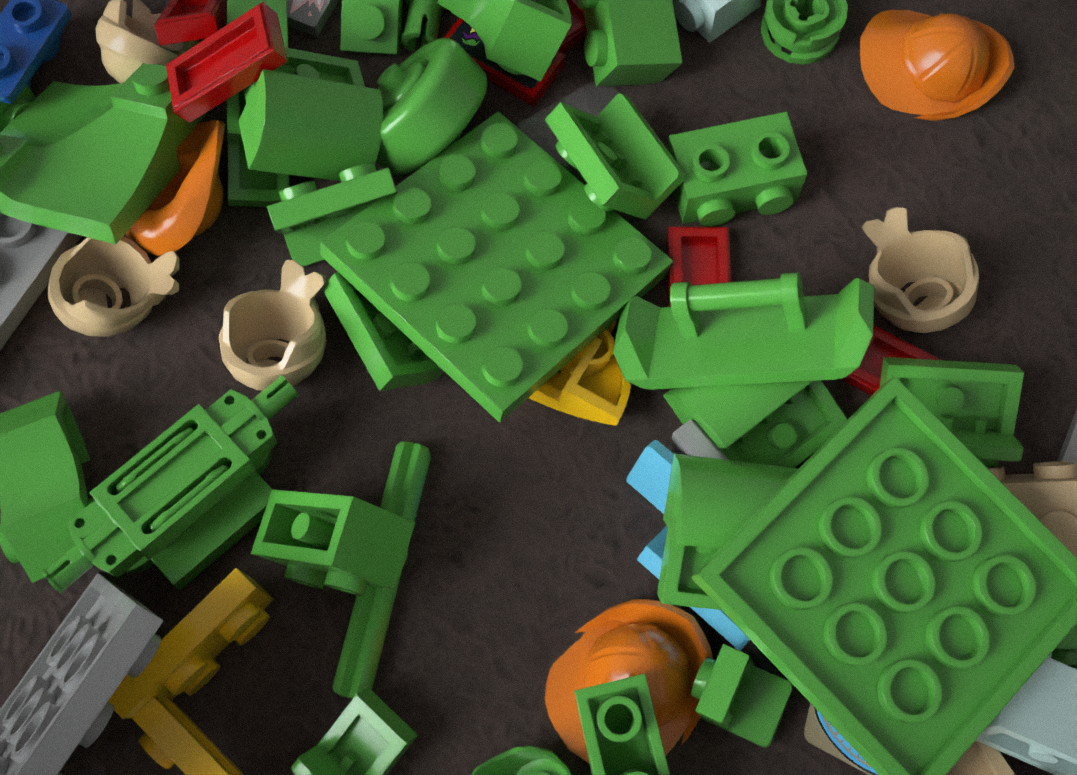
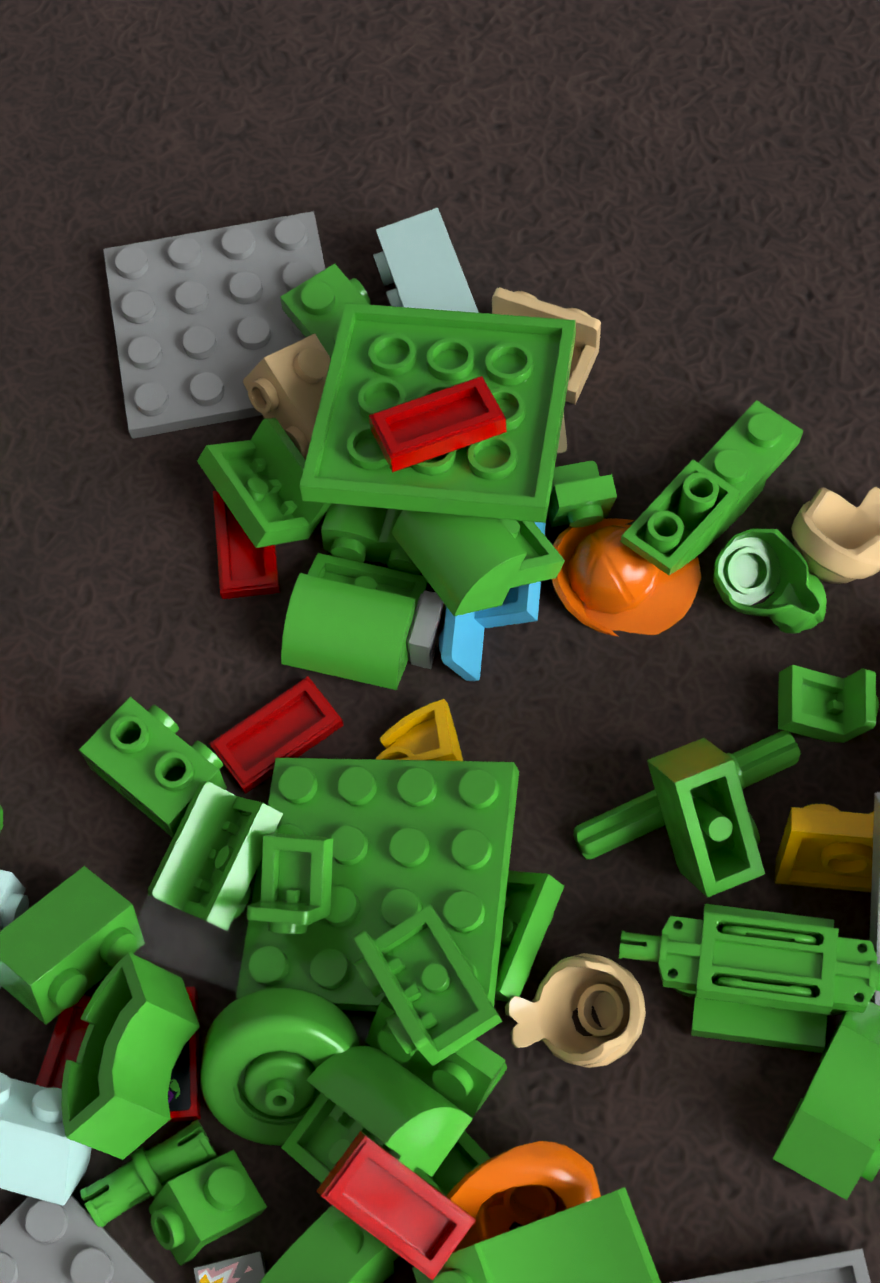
camera: 125 degrees left, 5 degrees down
(99, 268) = (680, 1175): tan hat -> none
(364, 190) = (428, 985): none -> bright green bracket
(533, 176) = (294, 882): none -> bright green bracket
(744, 334) = (317, 641): bright green piece -> none
(874, 547) = (437, 423): none -> red tile
(933, 260) = (141, 560): tan hat -> none

